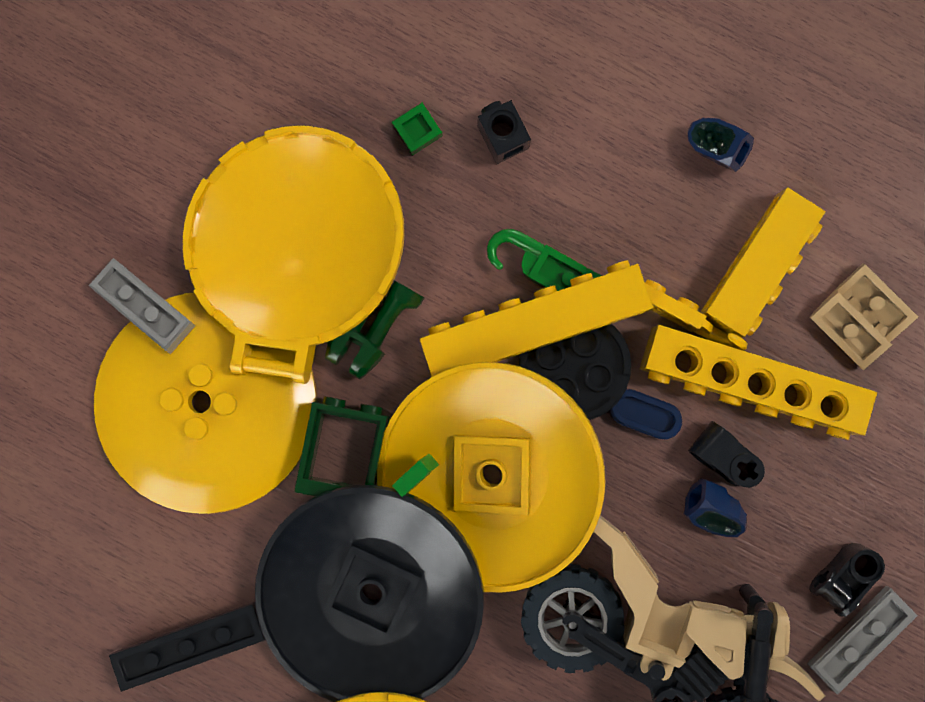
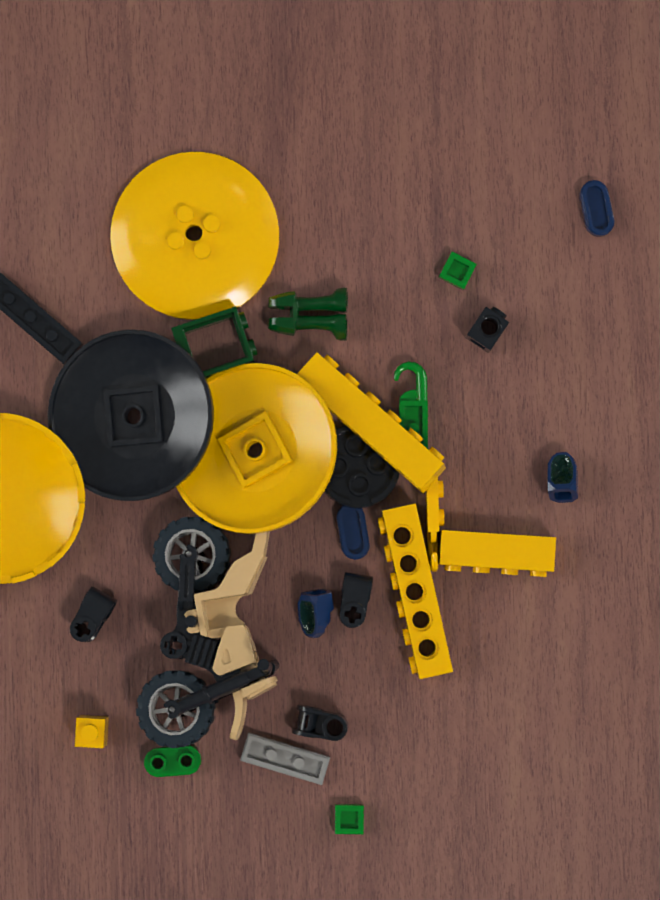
camera: 55 degrees right, 0 degrees up
(142, 306) = (234, 158): light grey tile -> none
(292, 243) = (332, 233): yellow dish -> none
(415, 475) = (227, 399): green tile -> none
(863, 316) = (501, 640): tan slope -> none

